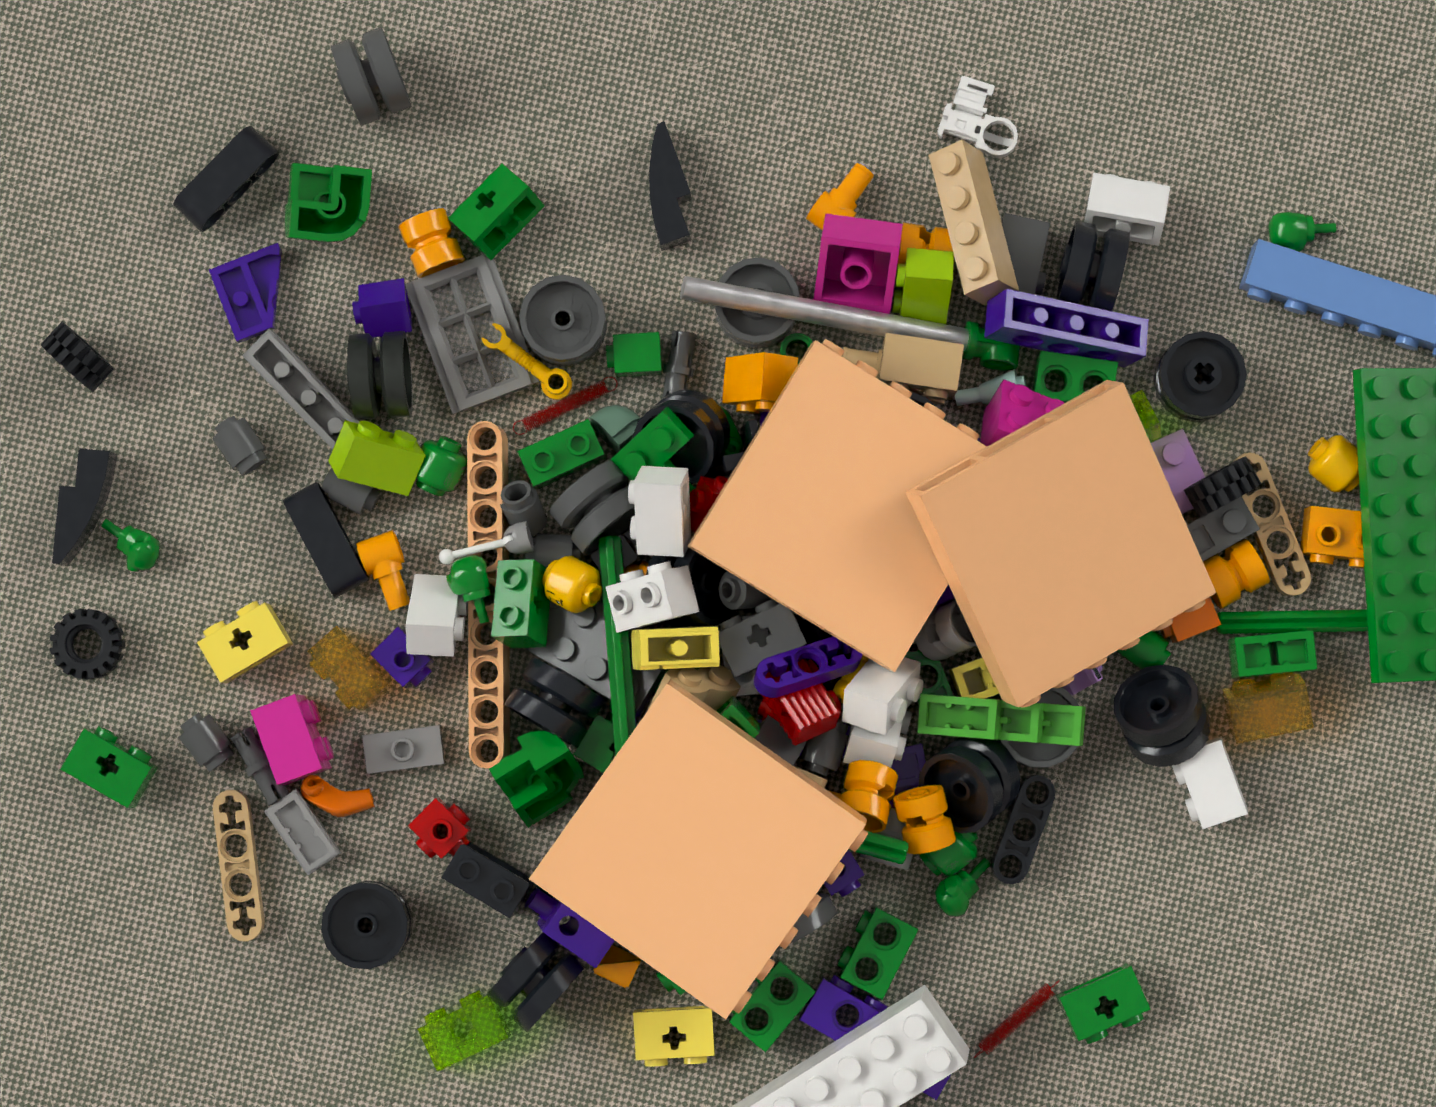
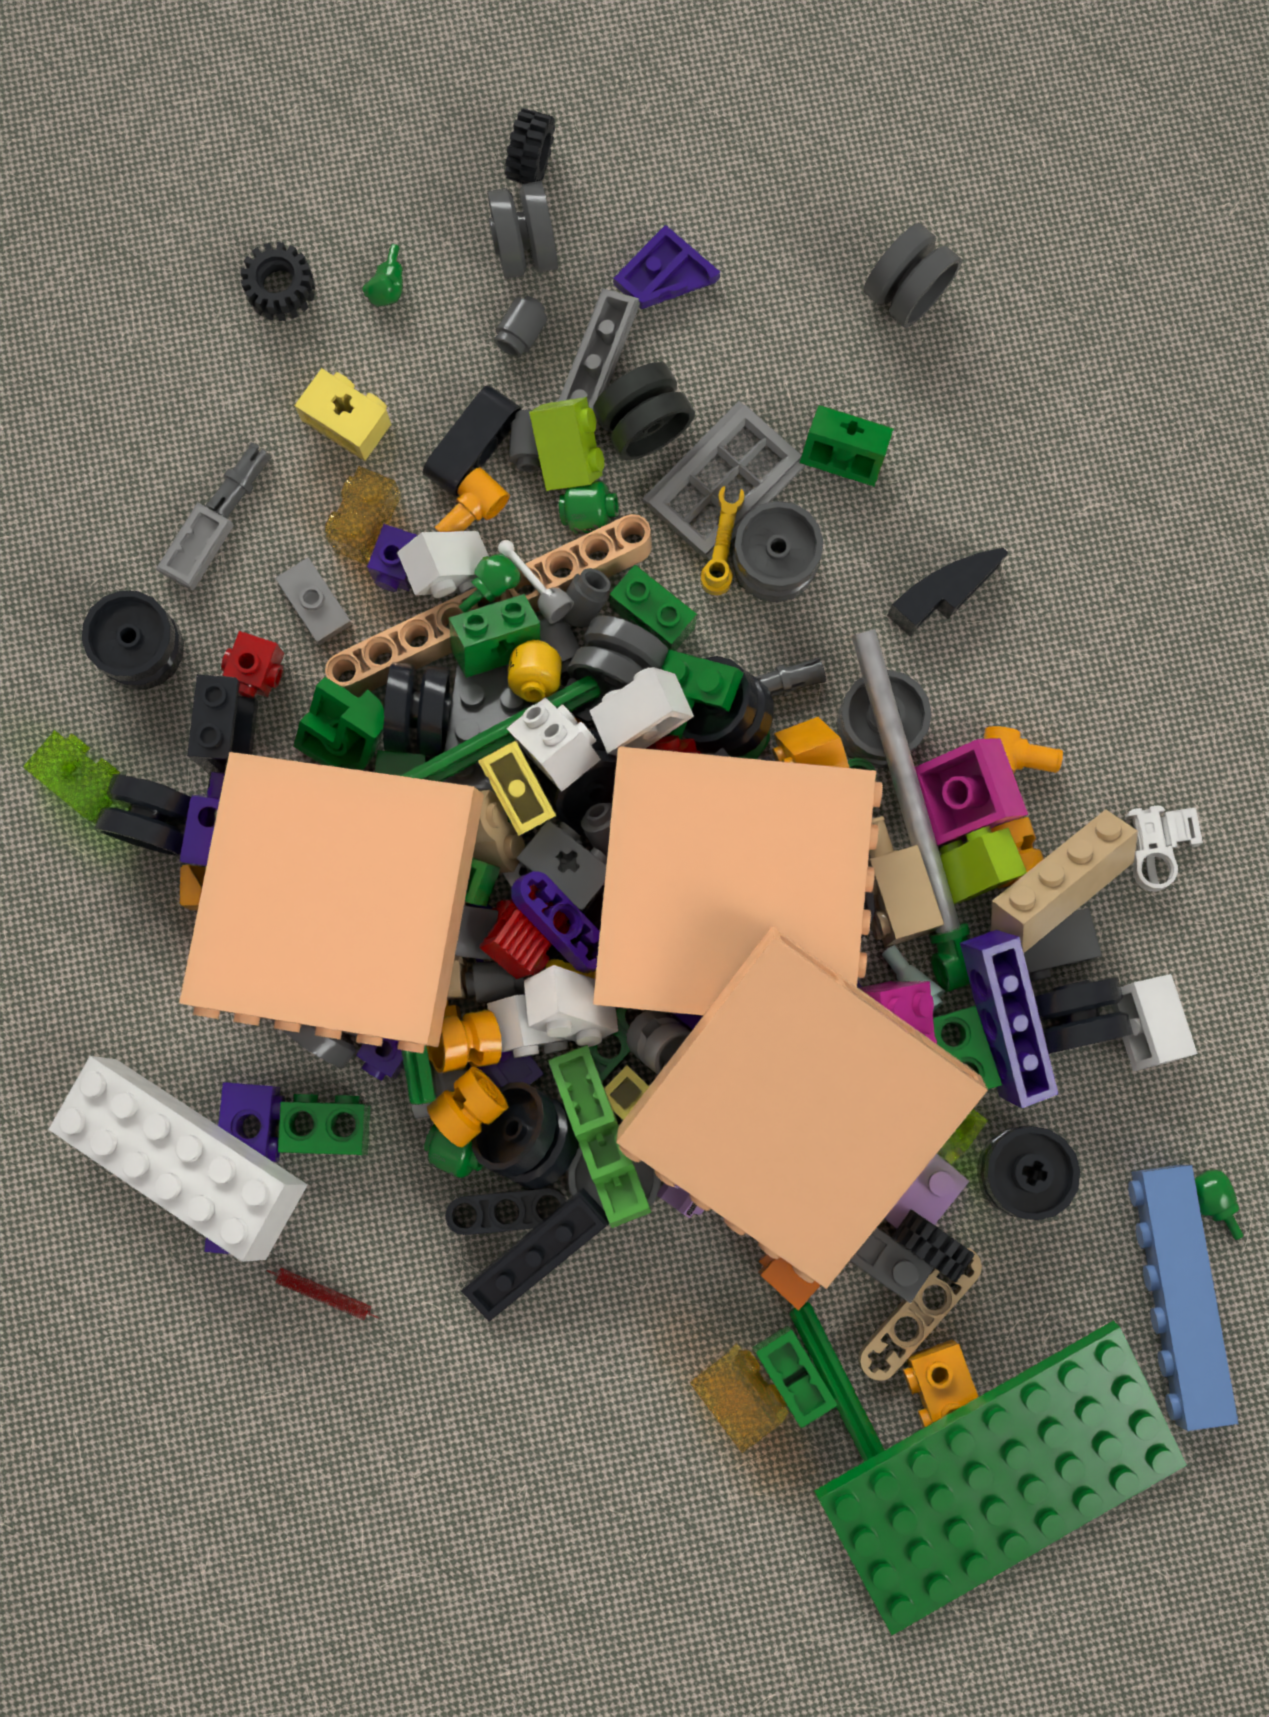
camera: 60 degrees right, 5 degrees down
(82, 505) = (399, 218): black slope -> none
(87, 766) = (175, 351): green brick -> none
(156, 401) = (522, 230): none -> dark grey wheel
(206, 741) = (237, 423): dark grey brick -> none
(226, 178) = (755, 202): black beam -> none
(244, 864) = (143, 512): tan beam -> none
(292, 738) = (272, 491): dark pink brick -> none
(326, 202) = (778, 293): green brick -> none
(333, 800) = (236, 561): orange arm -> none
(383, 307) = (708, 389): dark purple brick -> none
(429, 236) = (790, 401): light orange wheel -> none
(558, 408) = (723, 612): red piece -> none
(615, 425) = (706, 641): sand green piece -> none
(635, 354) = (779, 633): green brick -> none
(690, 1020) = (137, 957): light yellow brick -> none
(779, 1010) = (226, 1057): green brick -> none
(957, 890) = (417, 1175): green piece -> none
(1072, 821) = (536, 1254): none -> black tile
(1115, 985) = (397, 1373): green brick -> none
(1148, 652) = (737, 1250): green brick -> none
(1162, 715) = (680, 1294): black wheel -> none
(1211, 785) = (638, 1375): white brick -> none
(1235, 572) = (858, 1301): light orange wheel -> none
(1334, 463) = (1011, 1348): yellow head -> none

